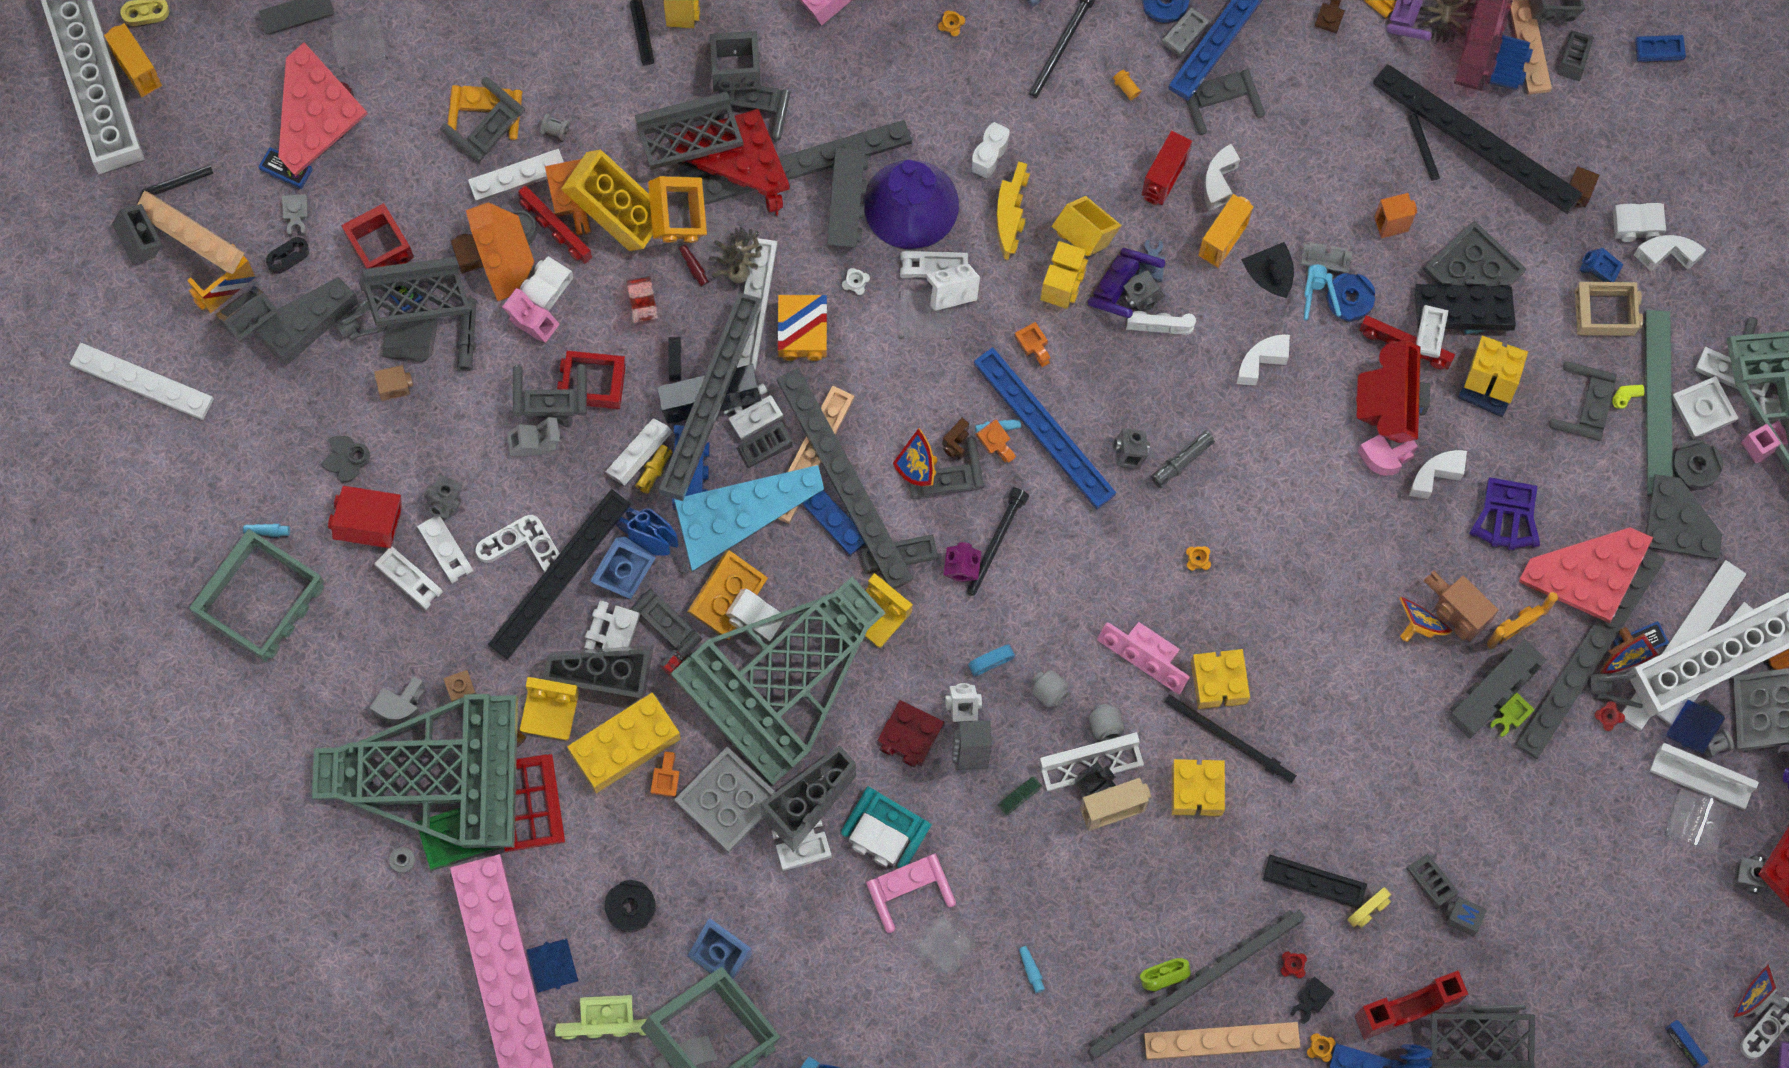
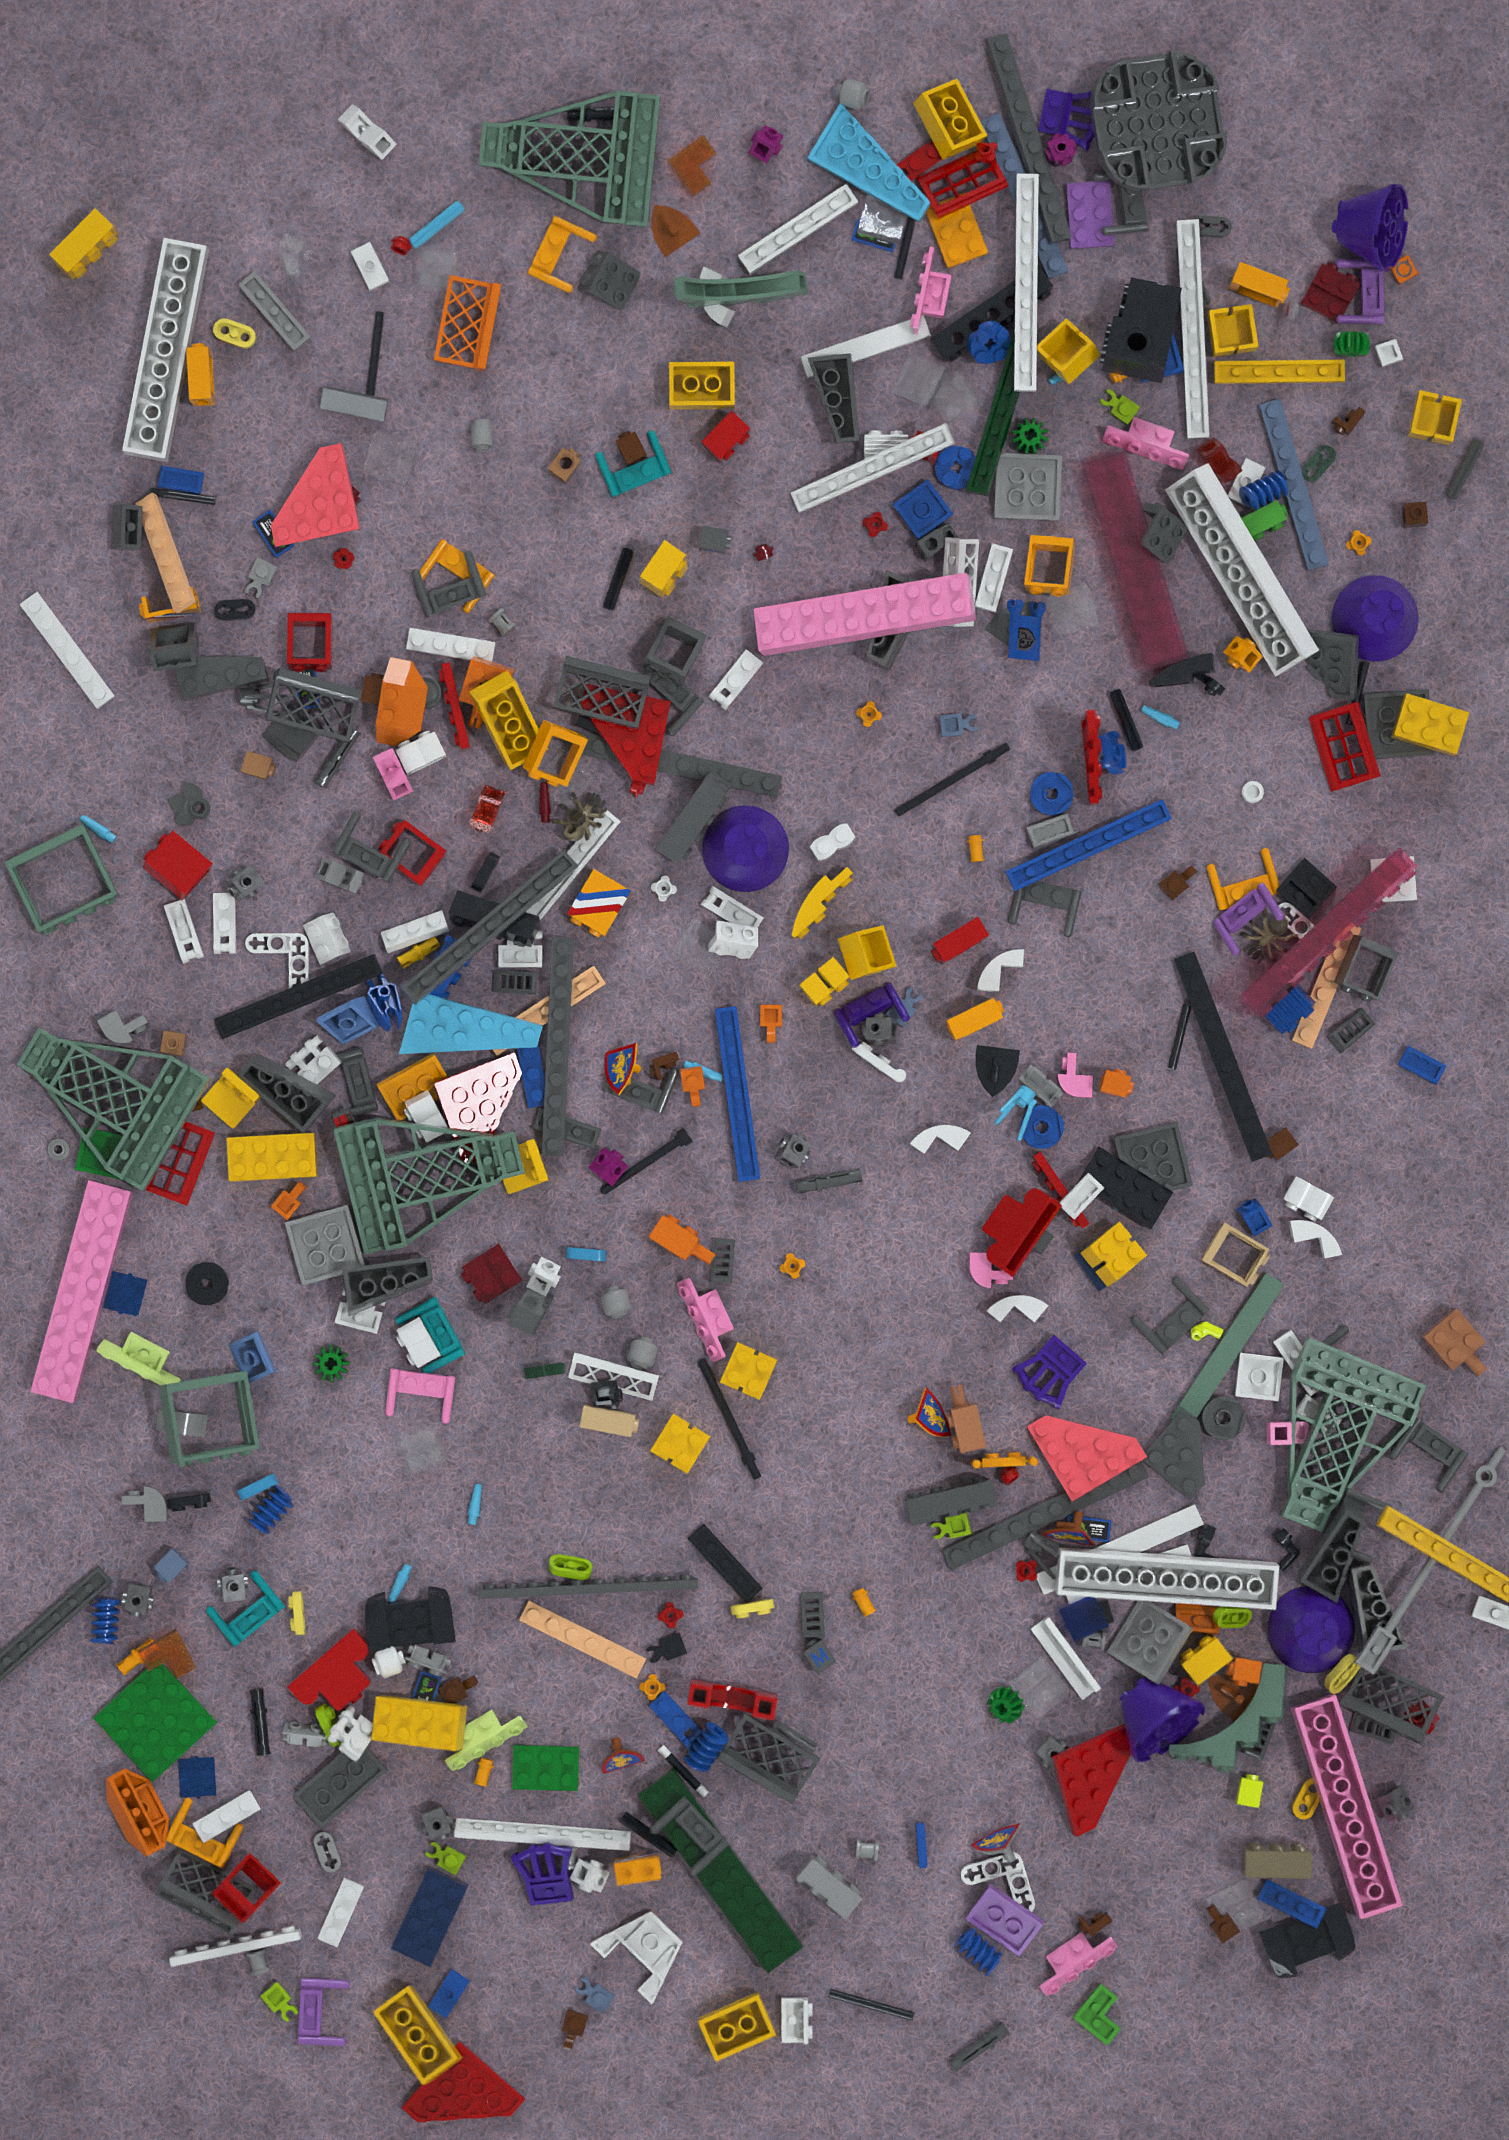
camera: 30 degrees right, 15 degrees up
(166, 167) = (180, 480): none -> blue tile
(367, 159) = (347, 563): none -> red plate
(555, 506) = (326, 938): none -> white bracket
(793, 910) = (323, 1359): none -> green gear
(794, 570) = (478, 1096): none -> plate
(808, 59) = (736, 679): none -> white plate
(1074, 590) = (680, 1240): none -> orange brick
(1136, 609) = (719, 1278): none -> dark grey slope
(1359, 239) = (1074, 1085): none -> bright pink brick
(1473, 838) = (863, 1601): none -> light orange pin
(1533, 634) = (1009, 1475): none -> red plate
(1683, 848) = (1005, 1704): none -> green gear
(1757, 583) = (1205, 1536): none -> black plate

